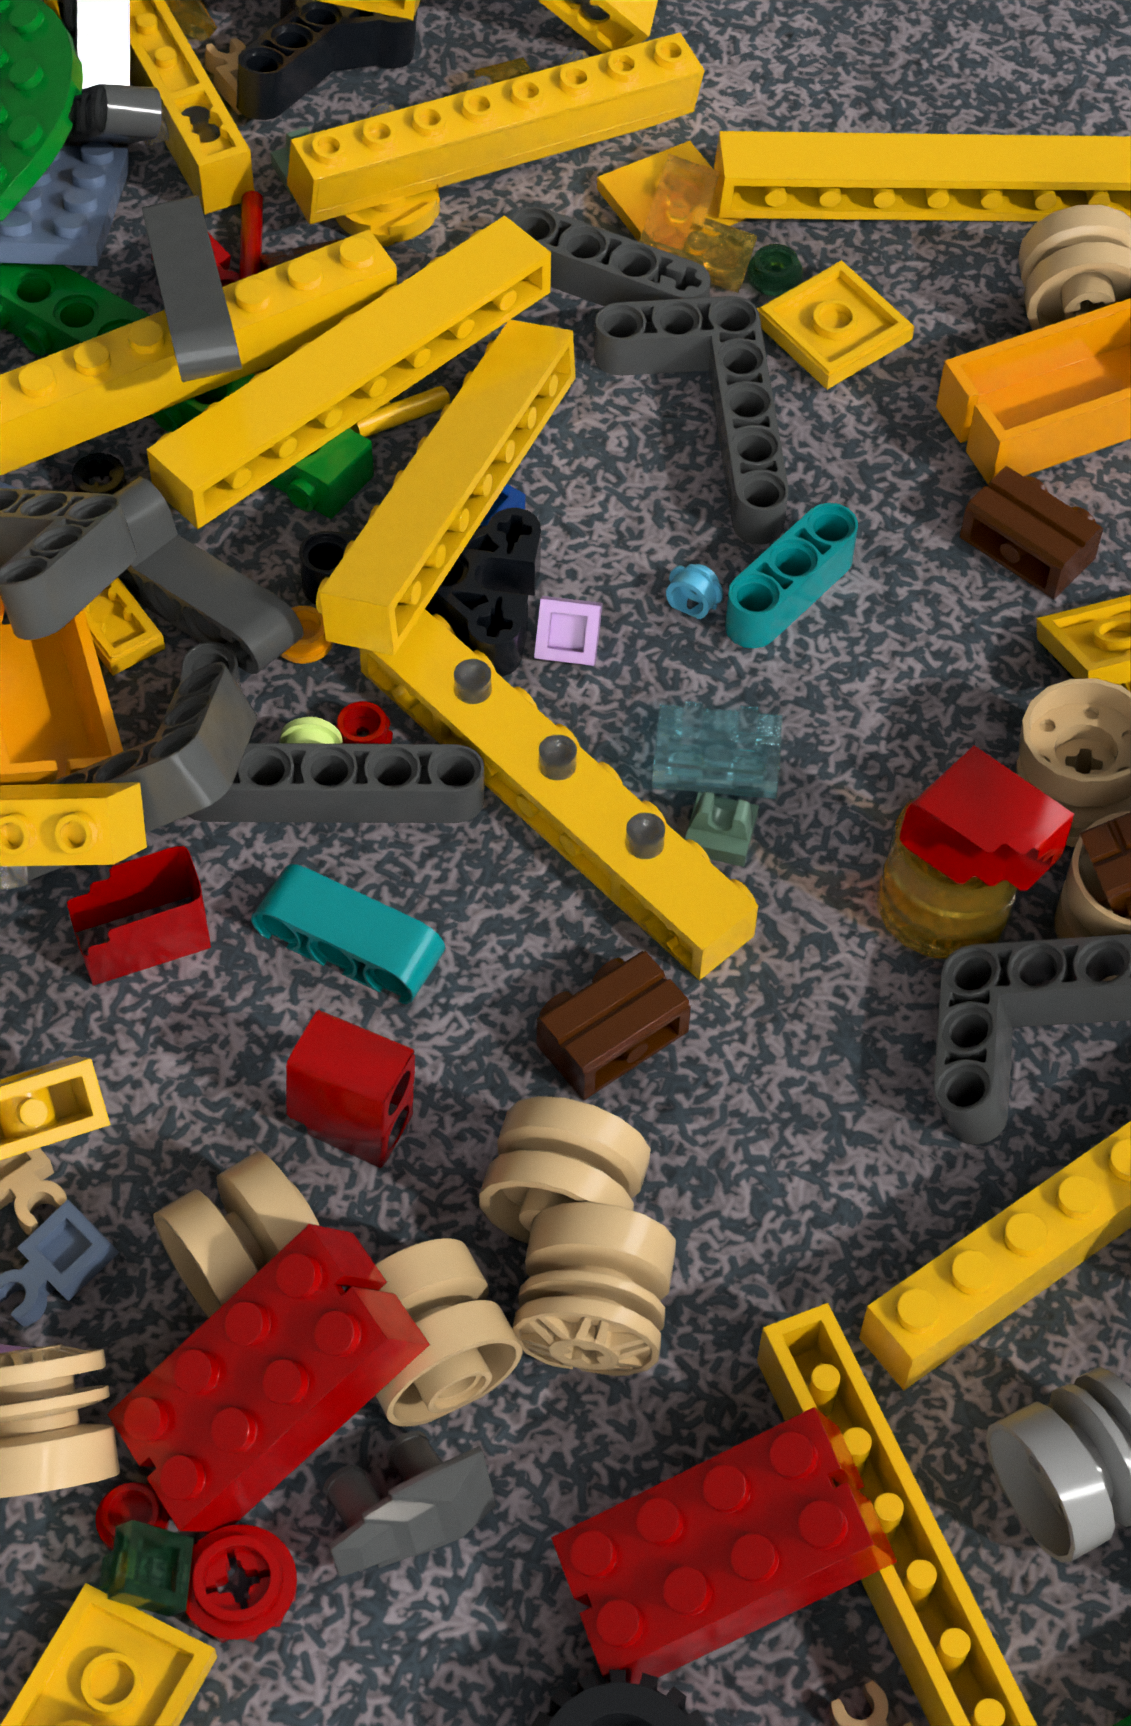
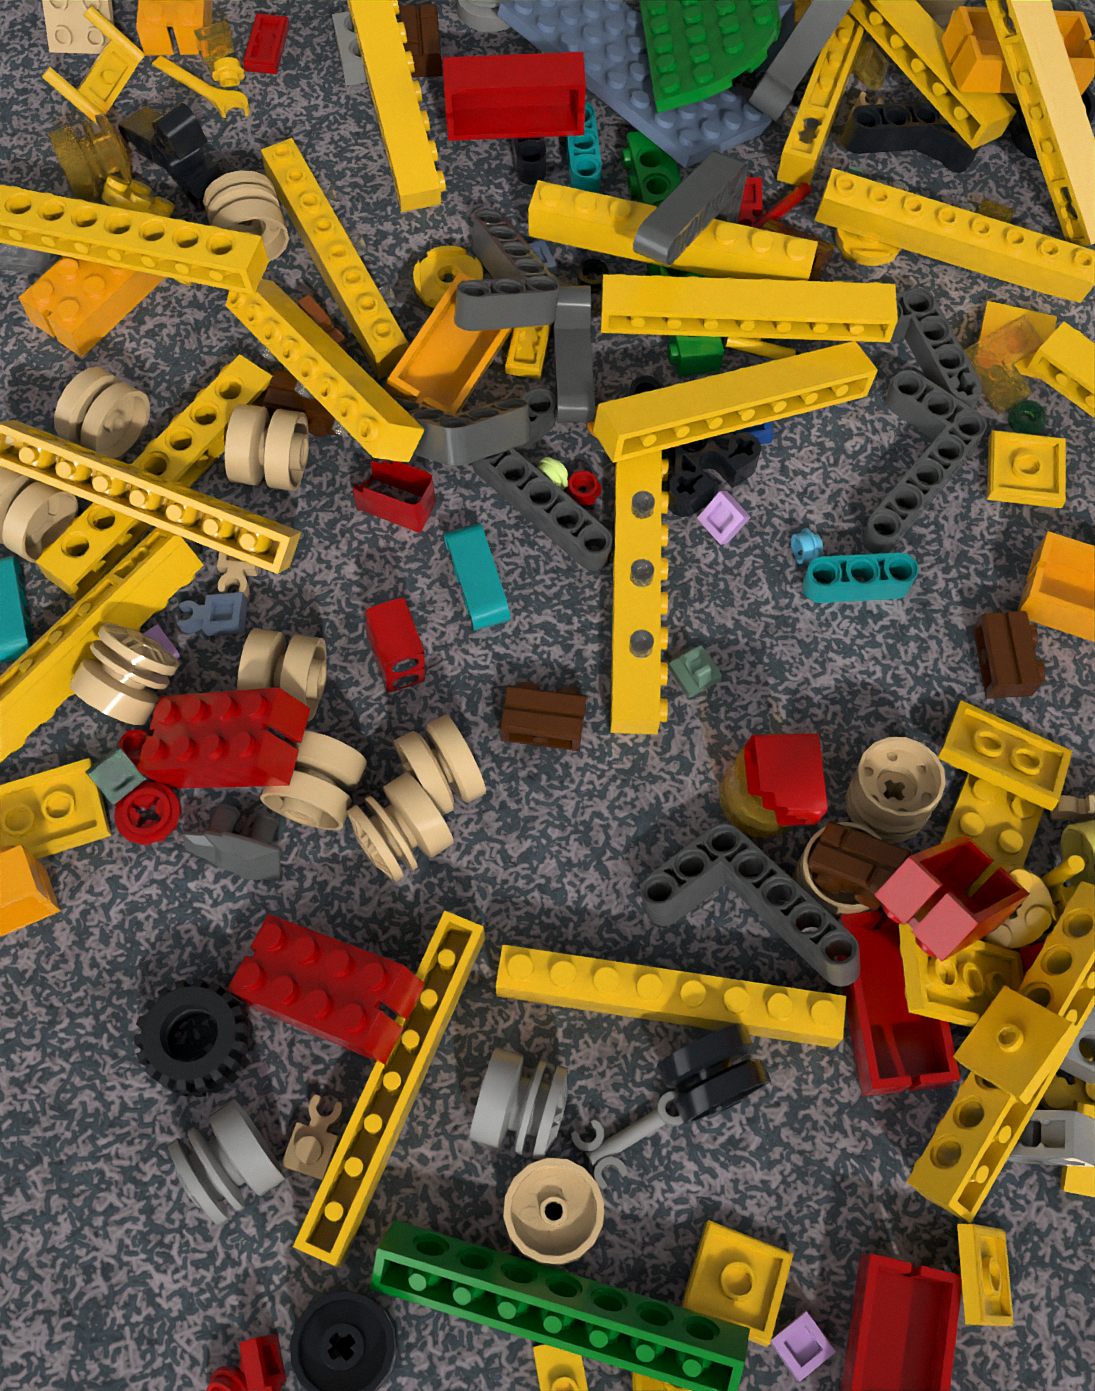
camera: 45 degrees right, 10 degrees up
(717, 750) = (725, 638): clear light blue plate -> none

